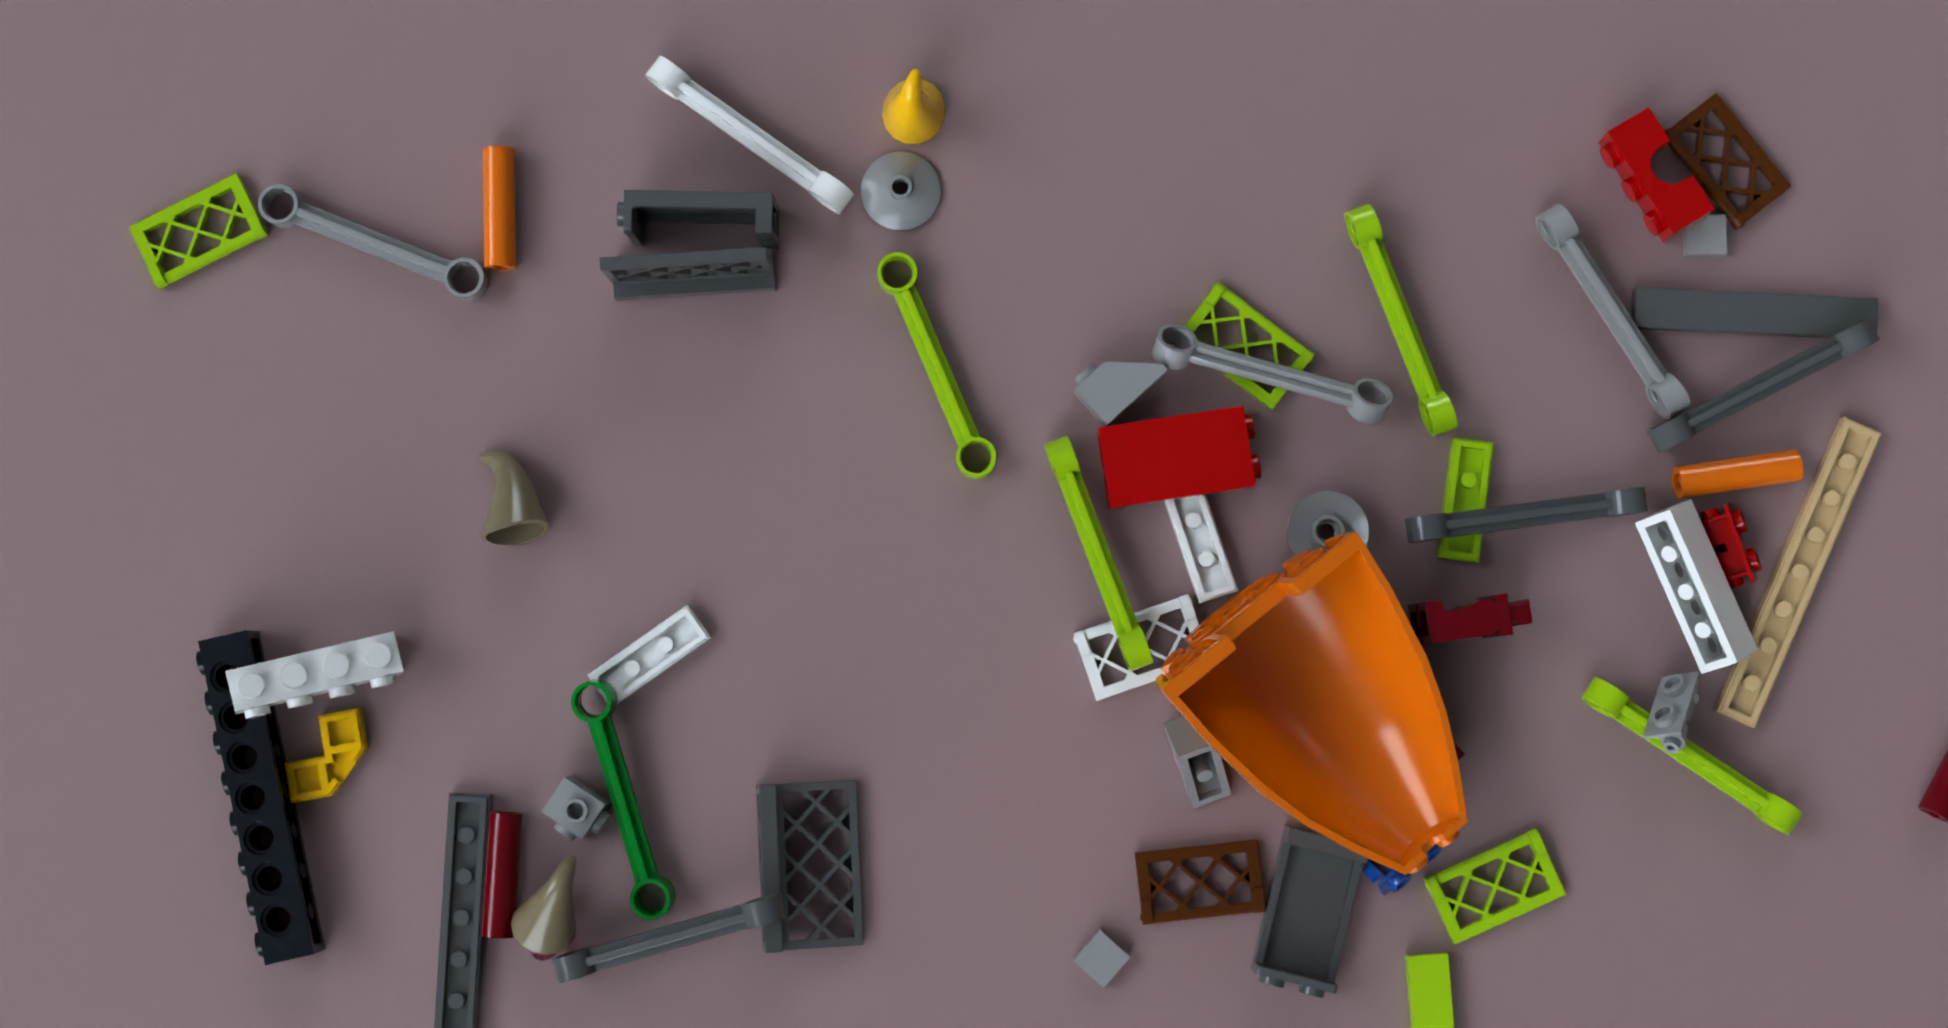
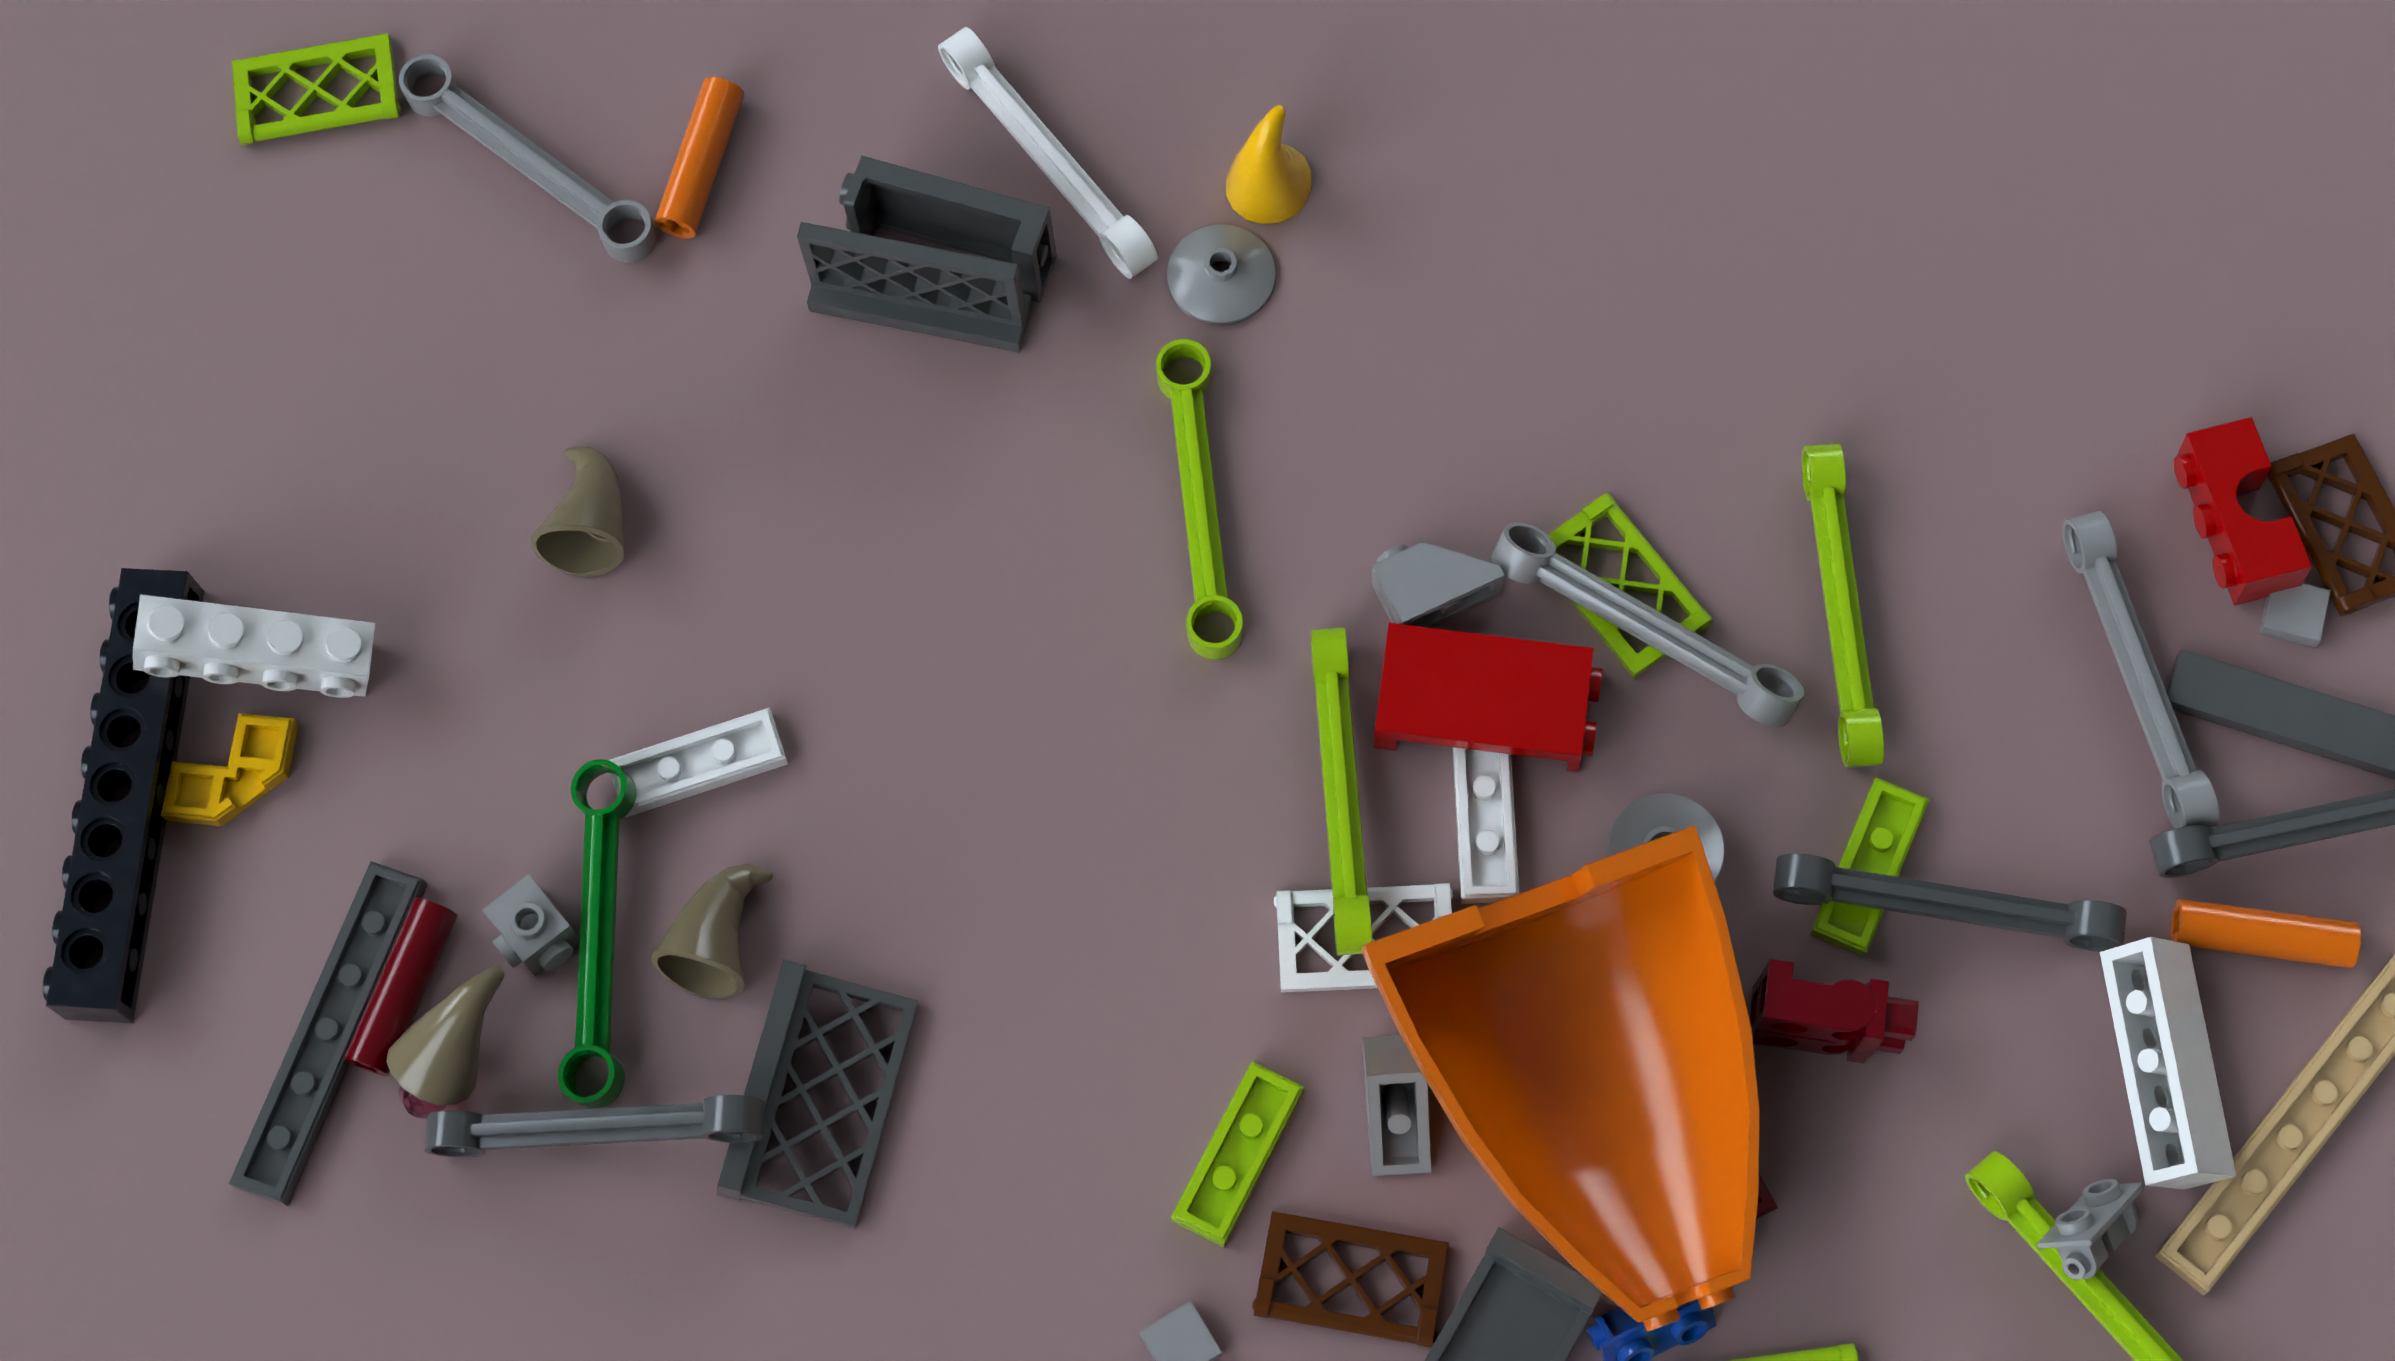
camera: 20 degrees right, 15 degrees down
(697, 783) = (703, 941): none -> dark tan hat
(1100, 820) = (1237, 1154): none -> lime tile
(1728, 529) = (2232, 1004): red hinge -> none

